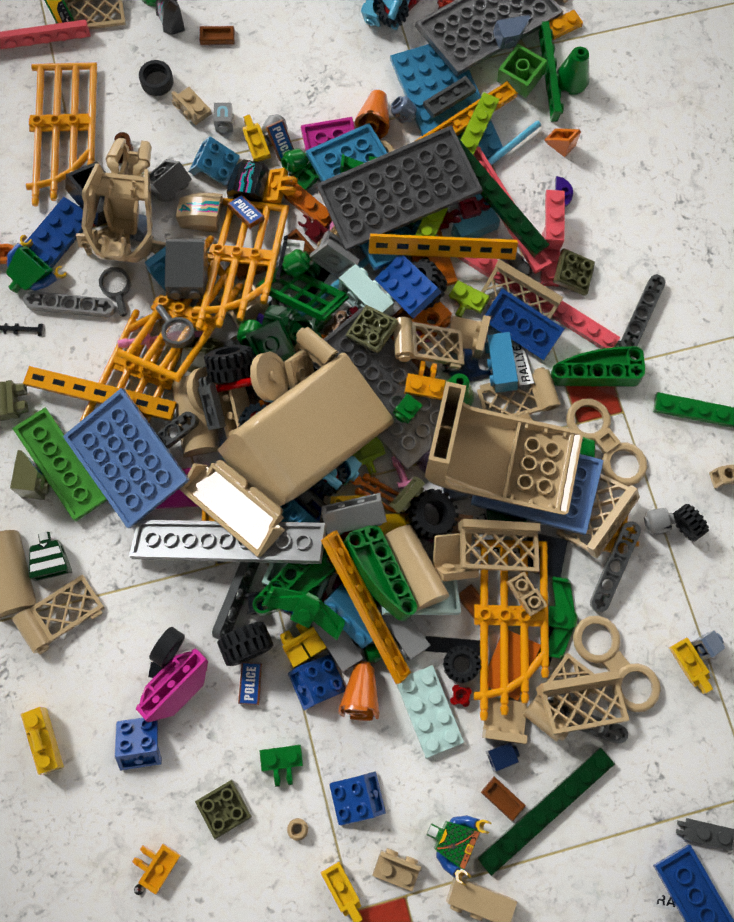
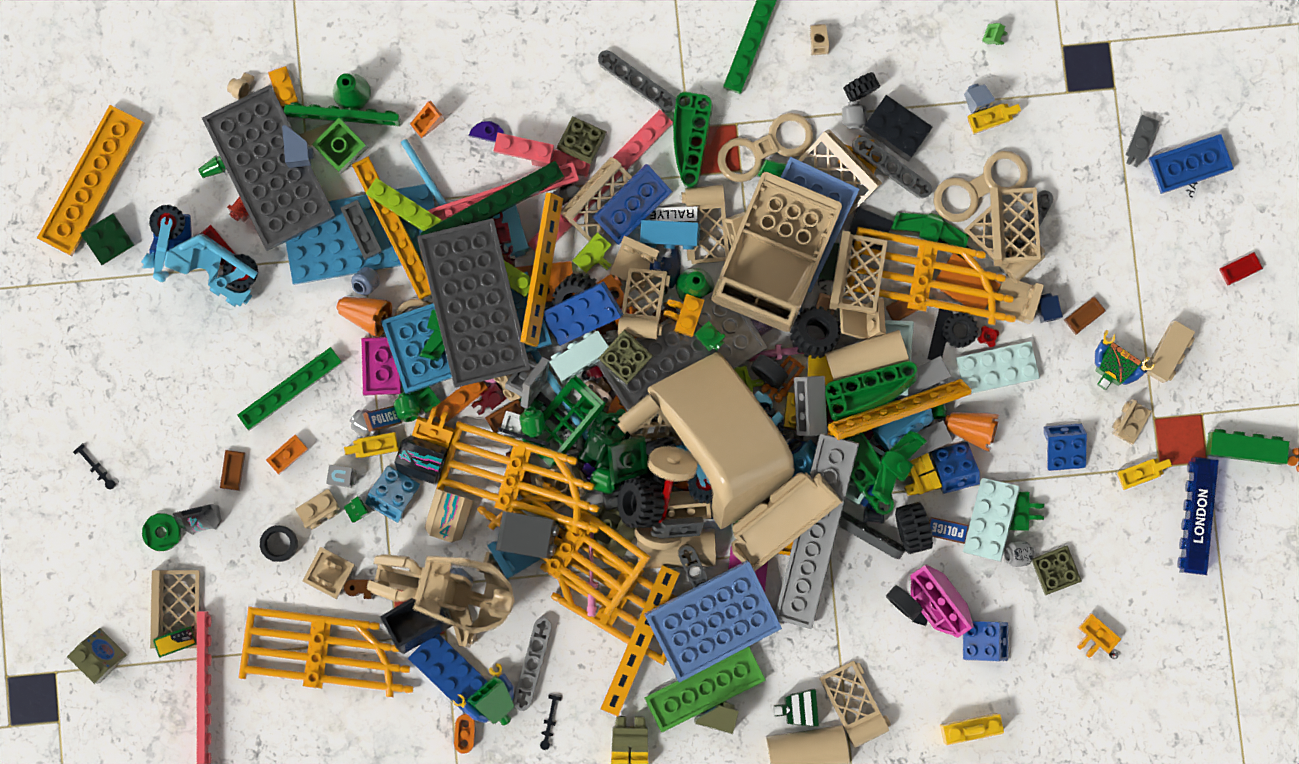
camera: 80 degrees left, 10 degrees up
(116, 284) = (521, 615): piece -> none
(135, 120) = (328, 572): none -> tan plate
(168, 180) = (407, 541): dark grey slope -> none
(176, 331) = (594, 552): dark grey piece -> none
(196, 134) = (356, 509): none -> green bracket
(234, 764) = (1019, 554): none -> light grey head
(237, 73) = (287, 454): none -> orange plate
(246, 211) = (461, 466): tile -> none
(267, 728) = (991, 519): none -> light aqua plate
(290, 829) = (1089, 503): tan plate -> none
(296, 67) = (289, 388): none -> green plate
(297, 368) = (661, 436): tan tile -> none
(383, 473) = (769, 371): none -> black tyre
(412, 489) = (795, 352): olive plate -> none
(526, 594) = (907, 257): tan slope -> none
(545, 811) = (1100, 278): dark green plate -> none
(657, 566) = (897, 128): none -> black piece

